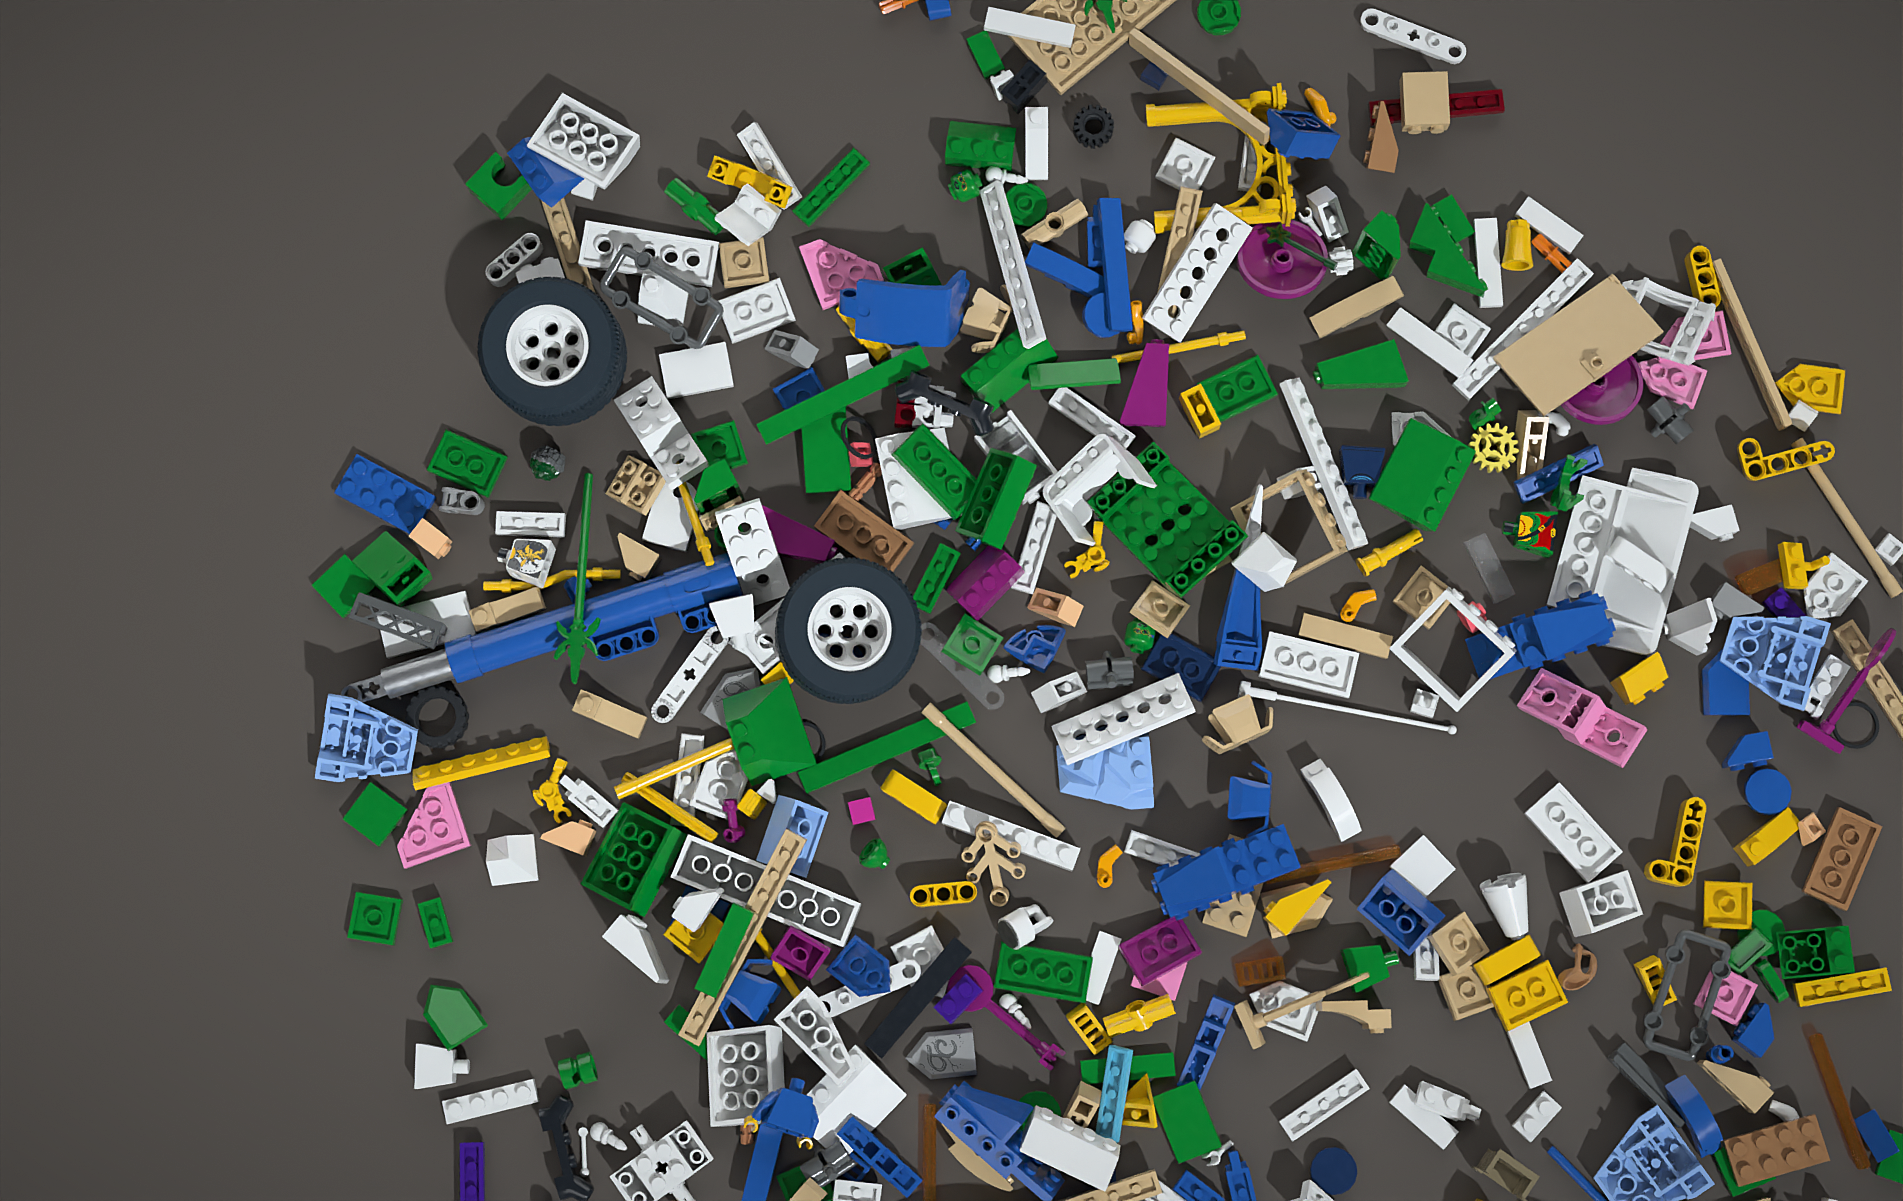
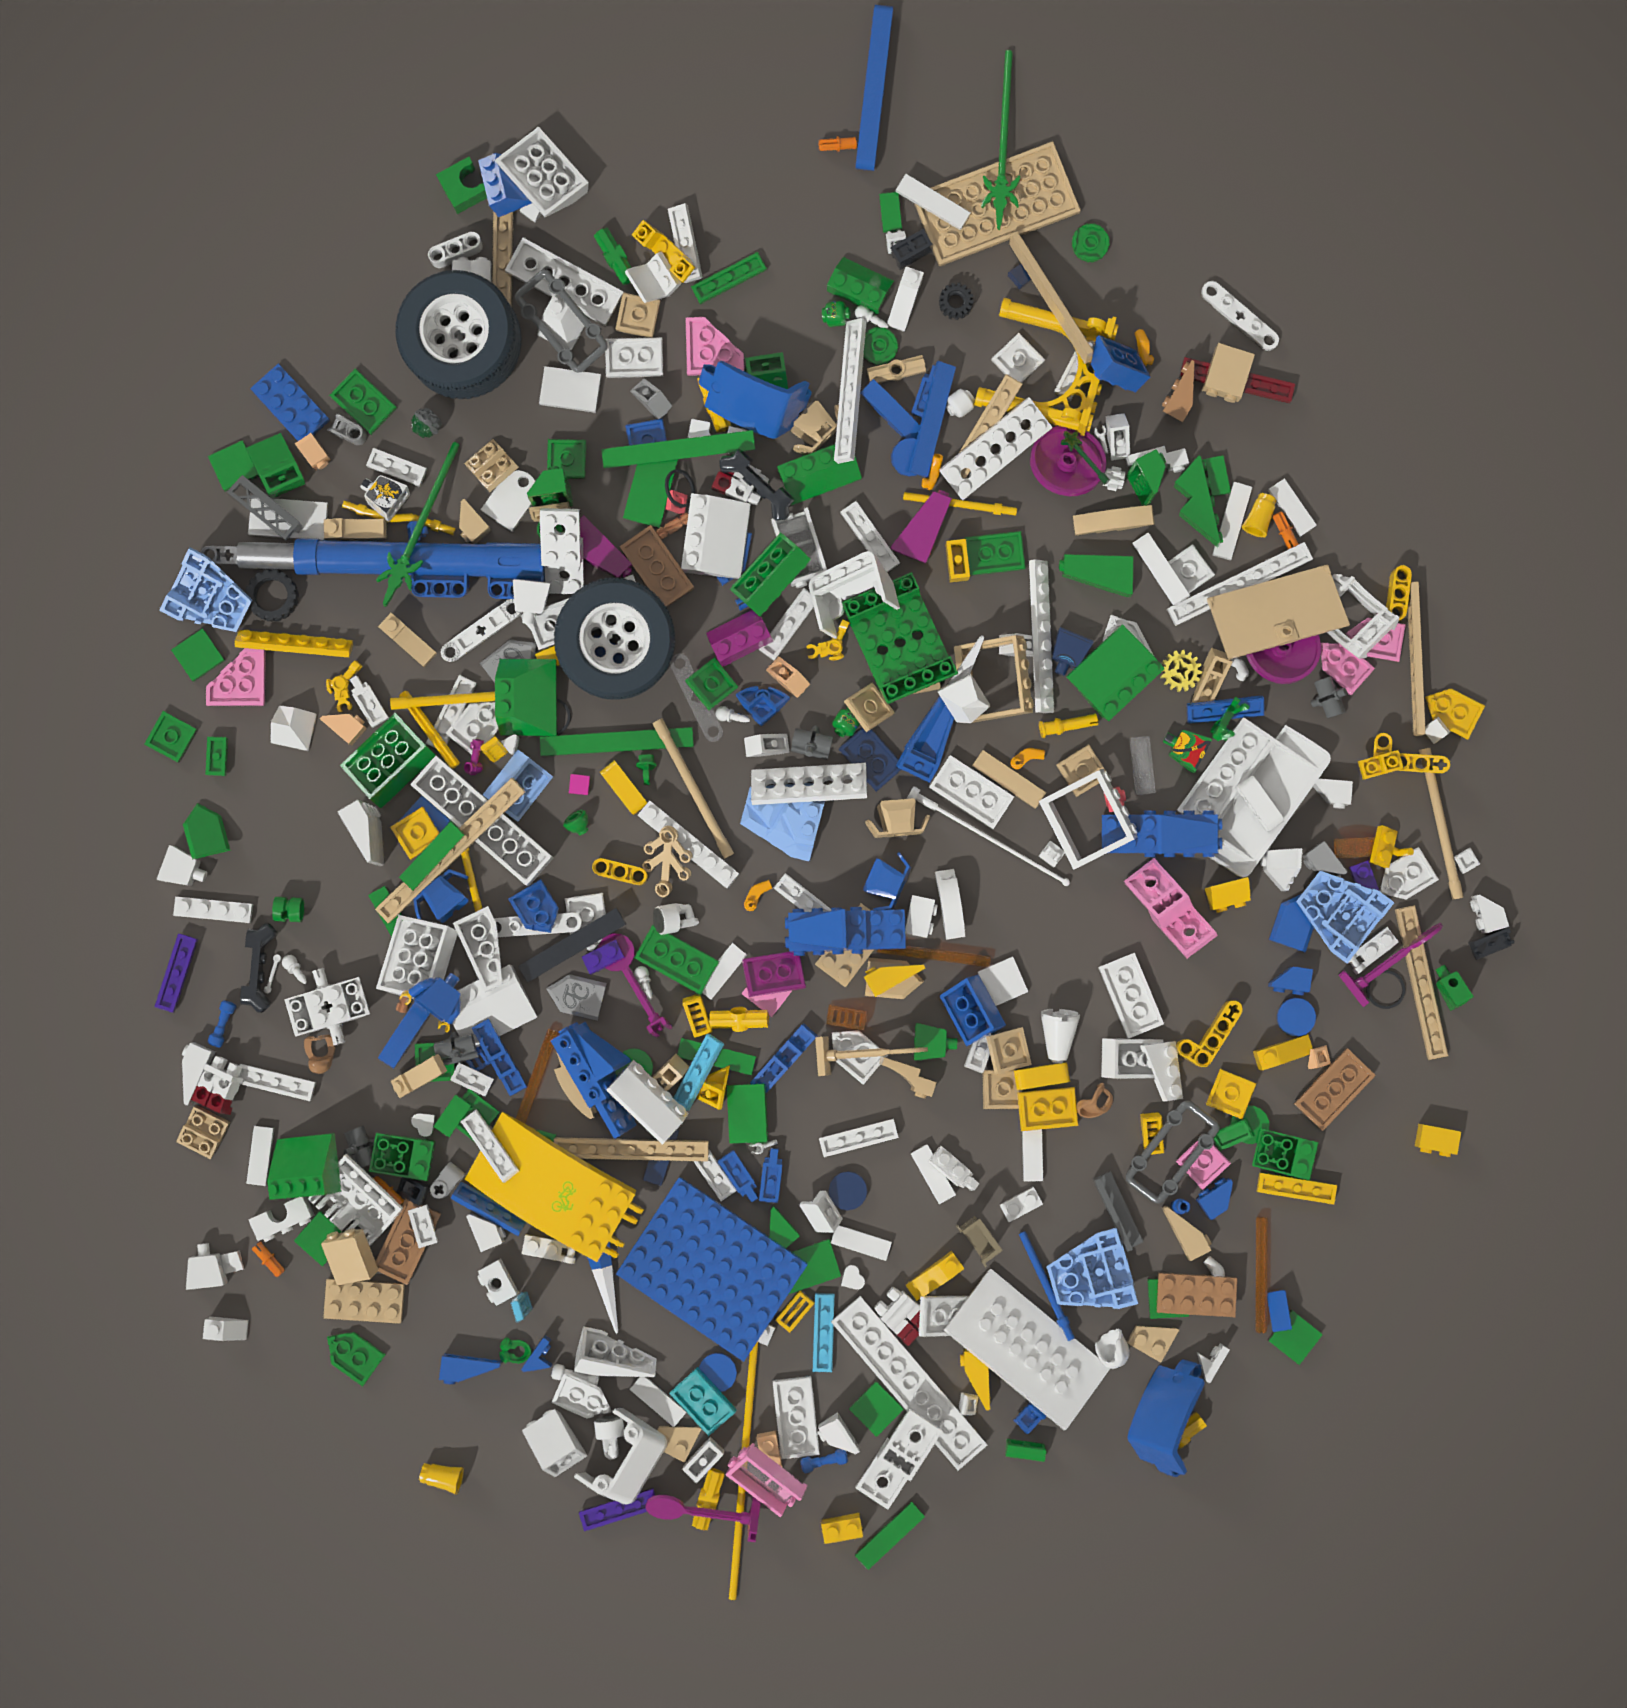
camera: 15 degrees right, 5 degrees up
(661, 433) = (524, 430): white bracket -> none
(695, 907) = (421, 814): white slope -> none
(702, 542) = (525, 528): yellow bar -> none
(800, 953) = (491, 878): magenta slope -> none
(935, 577) = (701, 621): green plate -> none
(936, 470) = (731, 535): green tile -> none
(1073, 374) = (868, 496): green slope -> none
(1302, 825) = (920, 916): none -> white brick
(1404, 215) = (1175, 460): none -> white slope
(1484, 414) = (1185, 641): green piece -> none
(1640, 897) = (1165, 1066): none -> white wing
(1696, 1115) = (1143, 1246): blue arch -> none
(1756, 475) = (1380, 764): none -> yellow slope
(1771, 981) = (1243, 1164): green beam -> none

